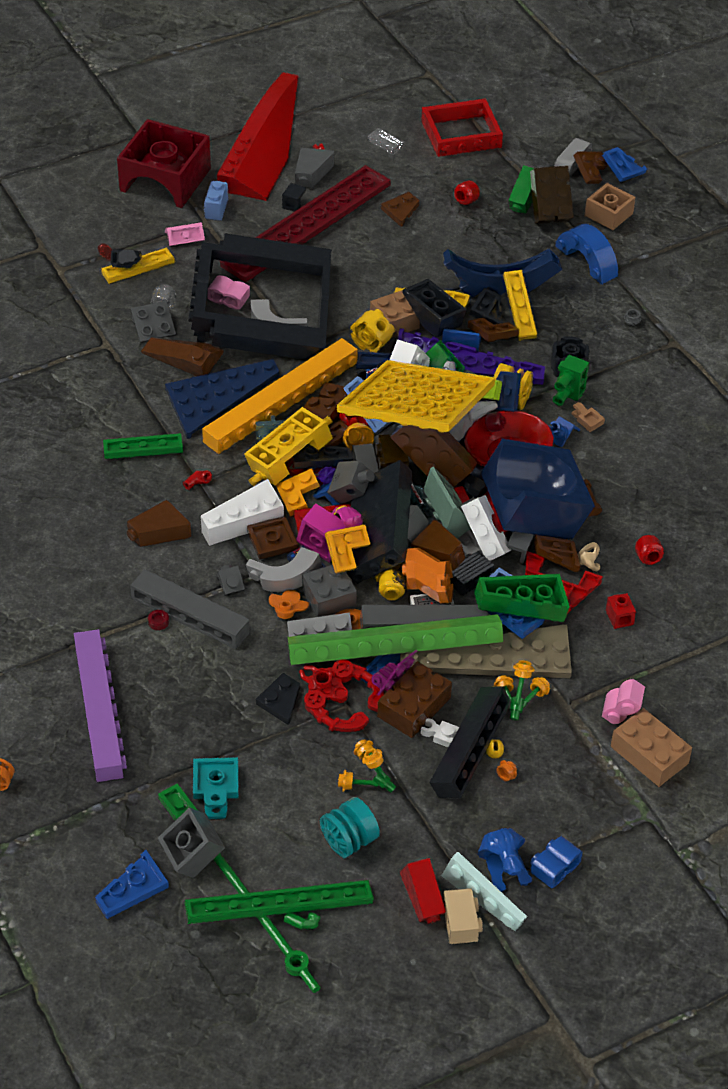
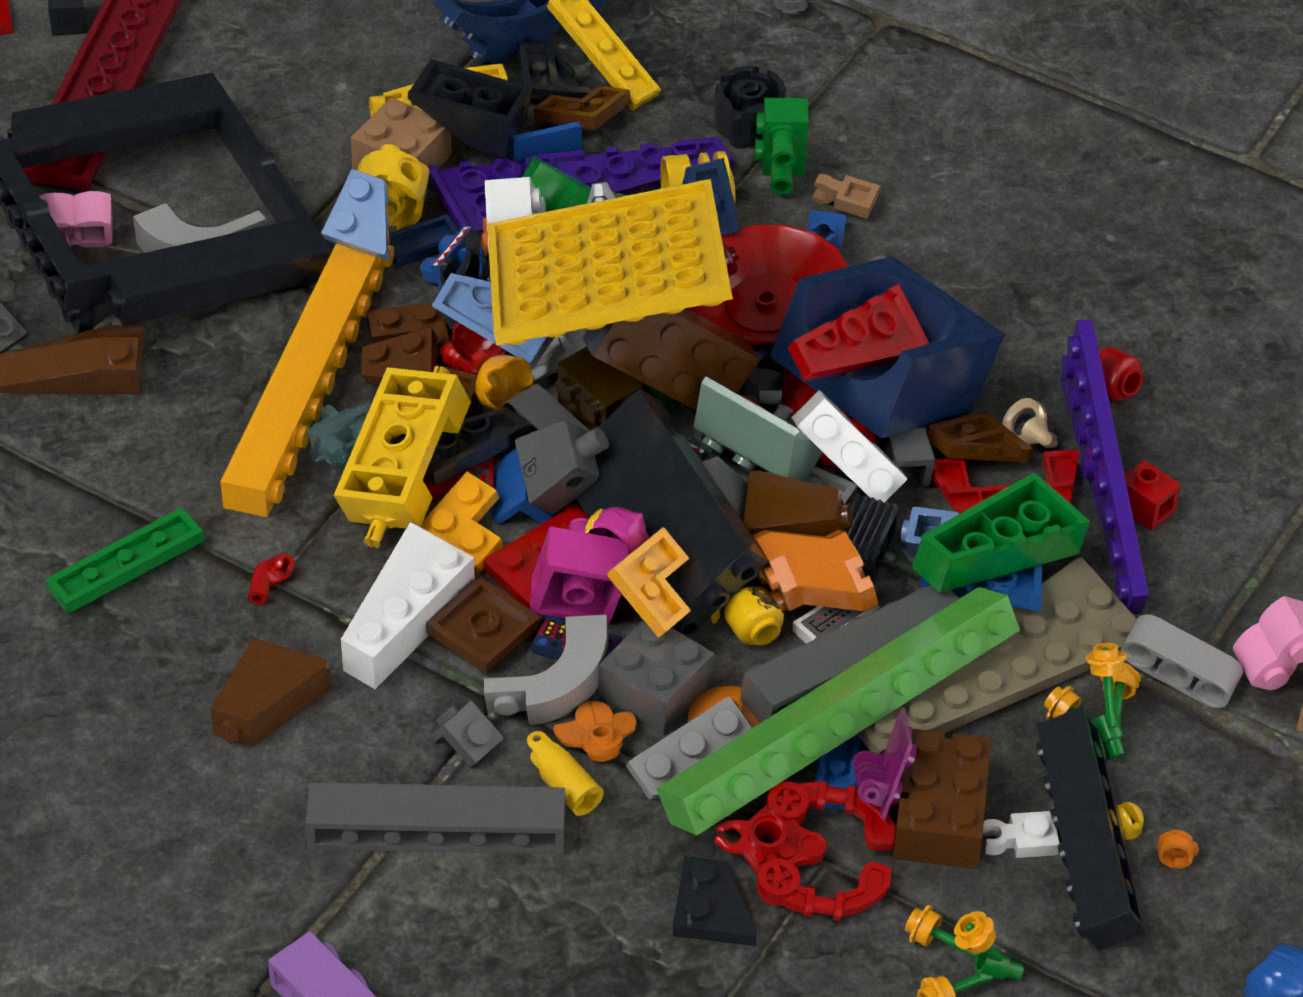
camera: 30 degrees left, 0 degrees up
(158, 620) = (389, 864): dark red tile -> none
(207, 396) = (177, 418): dark blue wing -> none
(257, 616) = (563, 771): none -> yellow piece
(326, 475) = (501, 472): dark purple plate -> none
(345, 336) = (360, 216): none -> medium blue wing
(519, 477) = (860, 338): none -> red wing
(574, 690) = (1182, 661): none -> light grey beam
(607, 581) = (1101, 461): none -> dark purple wing

